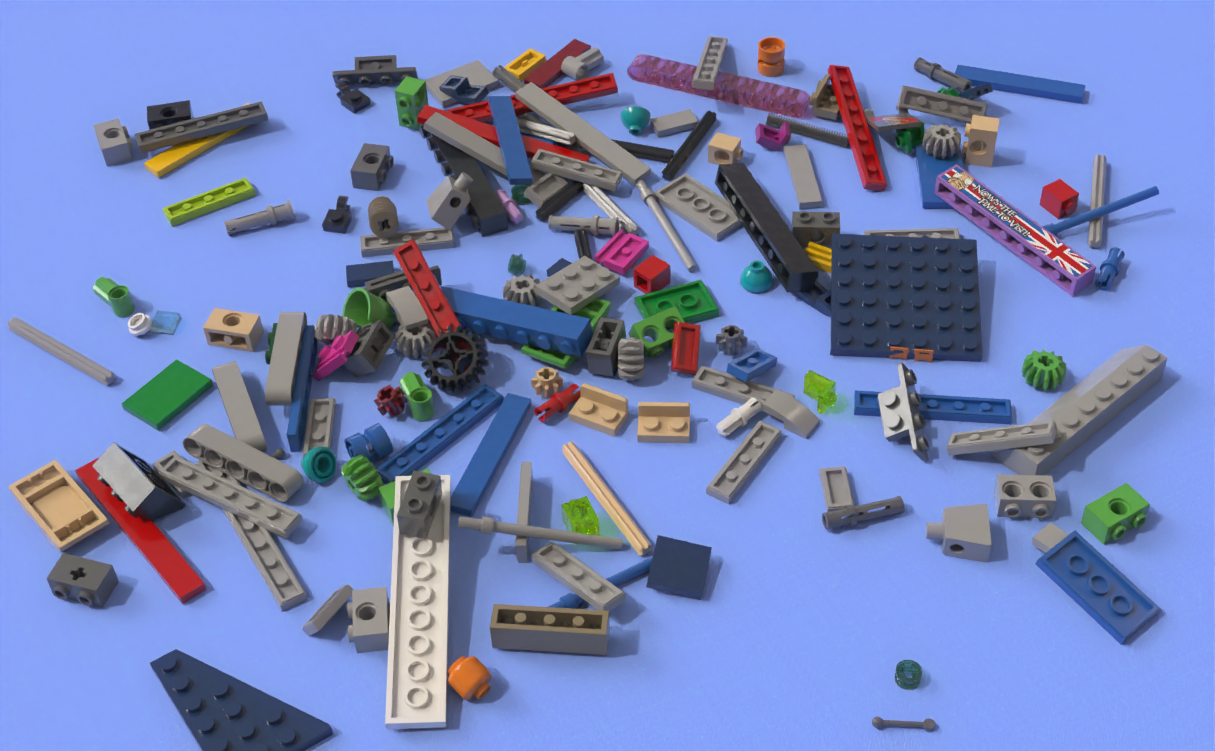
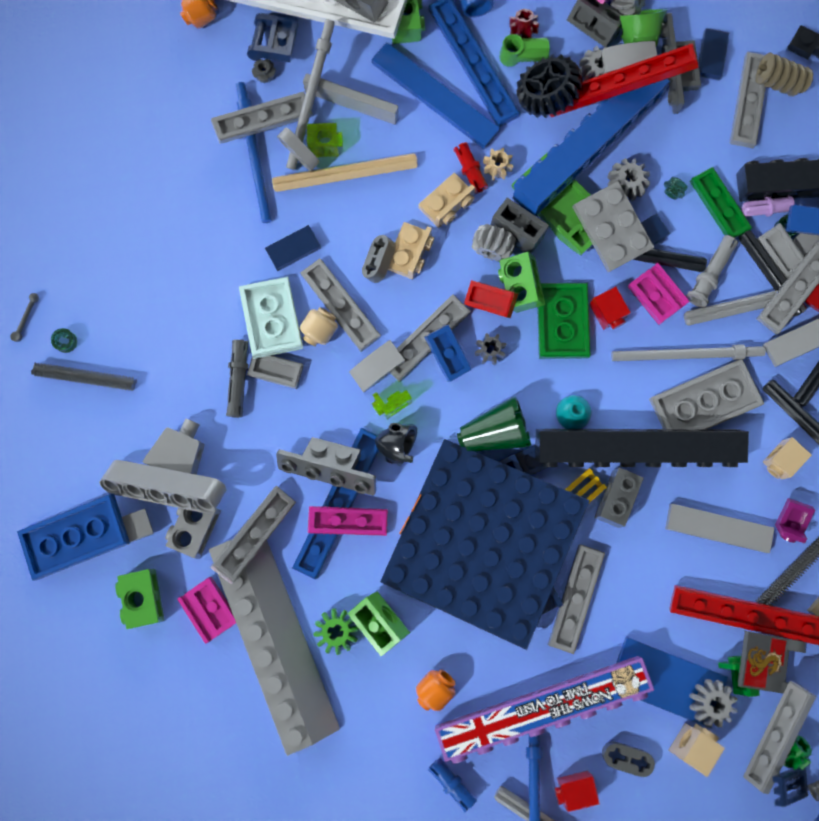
camera: 105 degrees right, 35 degrees up
(449, 200) = (789, 139): light grey torso -> none
(477, 590) = (280, 40): none -> dark blue plate
(512, 597) = (263, 76): none -> dark grey plate
(517, 237) = (720, 203): none -> green tile
(550, 629) = (213, 76): brick -> none
(604, 525) = (298, 149): none -> light grey beam
(679, 567) = (240, 201): dark blue tile -> none
(685, 434) = (378, 258): none -> dark grey beam
(705, 514) = (293, 248): none -> dark blue tile
(738, 417) = (391, 318): white axle -> none
(777, 463) = (318, 326): none -> tan head
(787, 506) = (270, 317): none -> light aqua tile
(801, 311) = (496, 429): none -> dark green cone
(860, 371) = (397, 443): none -> black helmet
(935, 643) = (89, 377): none -> dark grey axle
(945, 389) = (347, 521): none -> dark pink tile
(1004, 518) = (163, 486): none -> light grey beam
(1013, 178) = (629, 753): none -> dark grey beam
(1018, 339) = (378, 623): none -> bright green brick
(1045, 295) = (435, 690): none -> orange head
(1088, 463) = (207, 610): none -> dark pink plate

